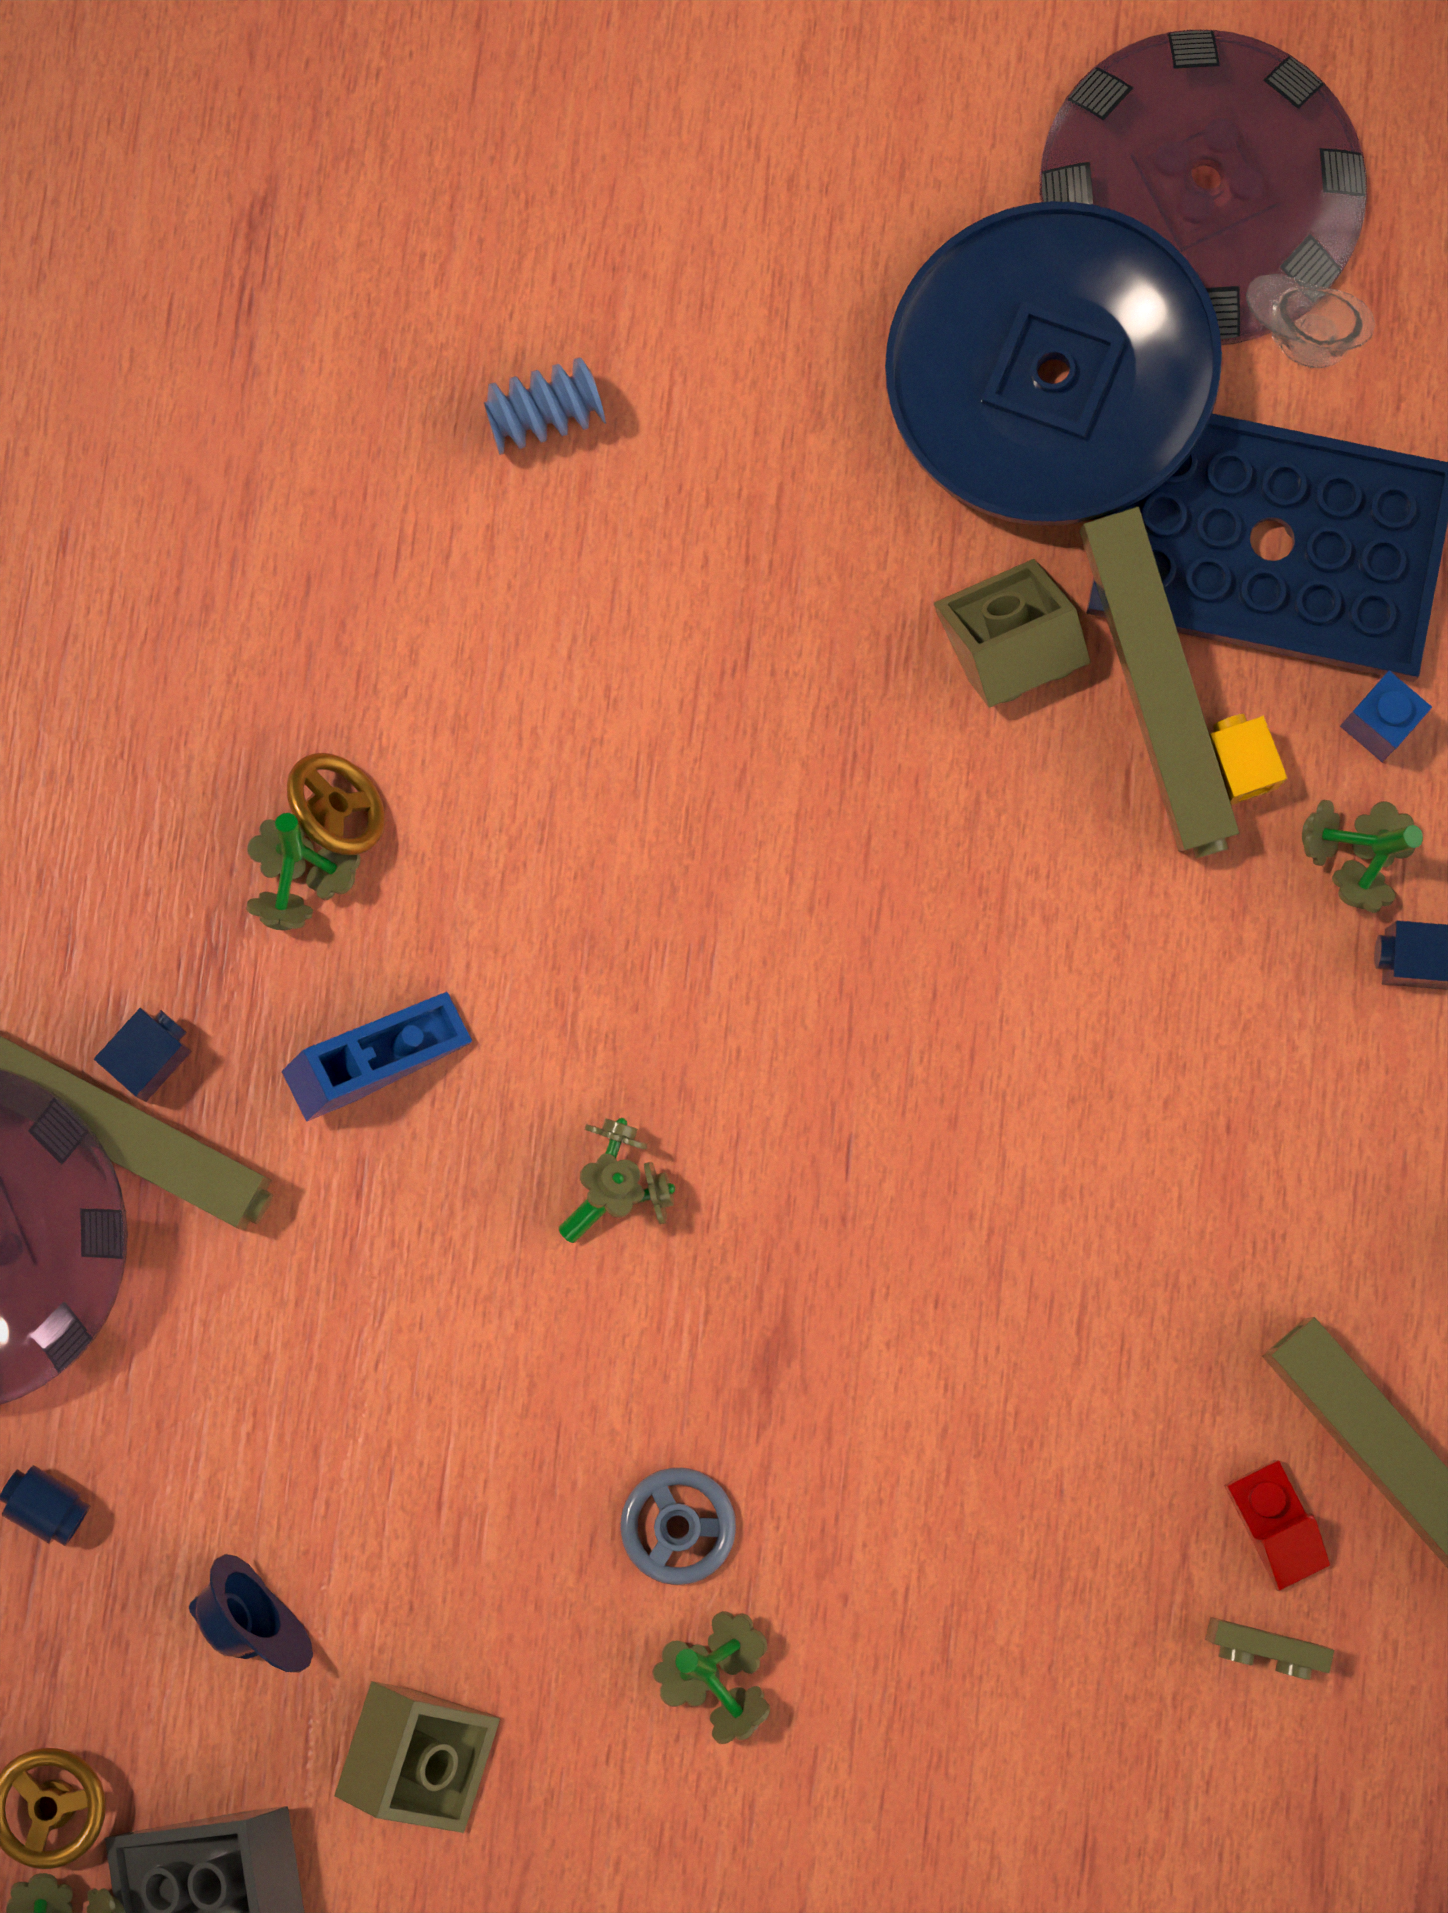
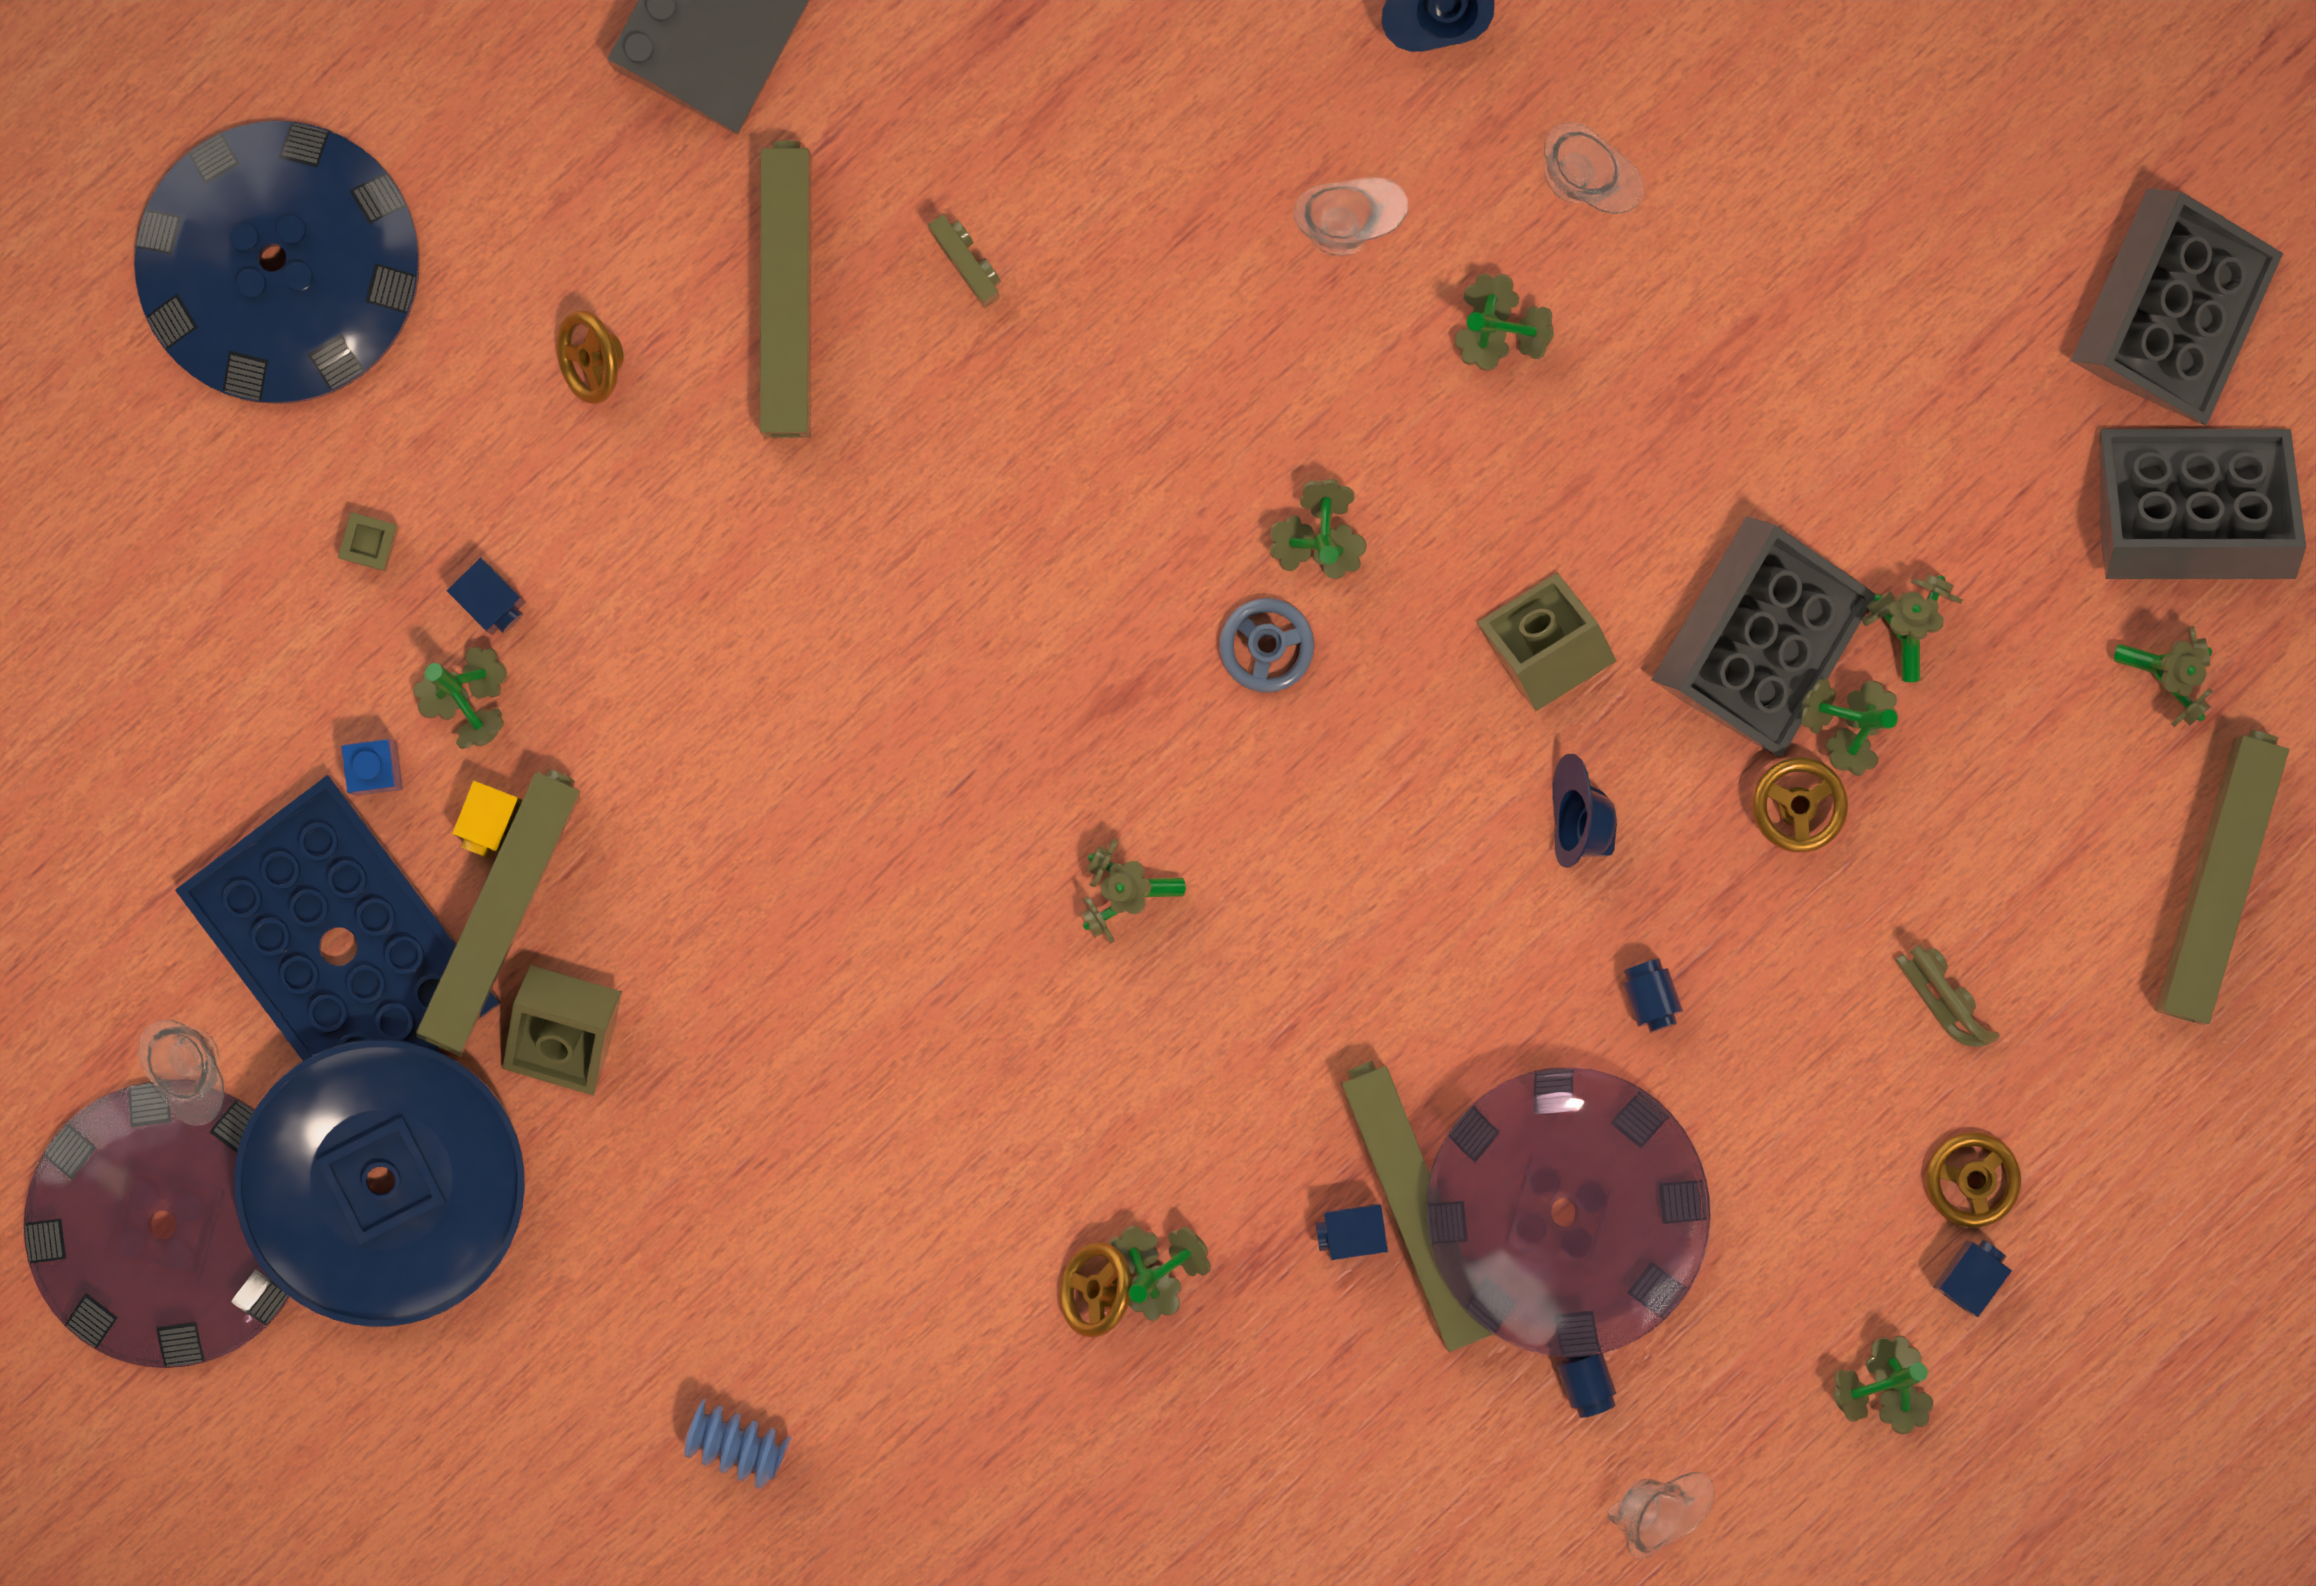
camera: 135 degrees left, 5 degrees up
(374, 1055) = (1206, 1103): blue slope -> none
(1278, 1525) = (893, 327): red slope -> none

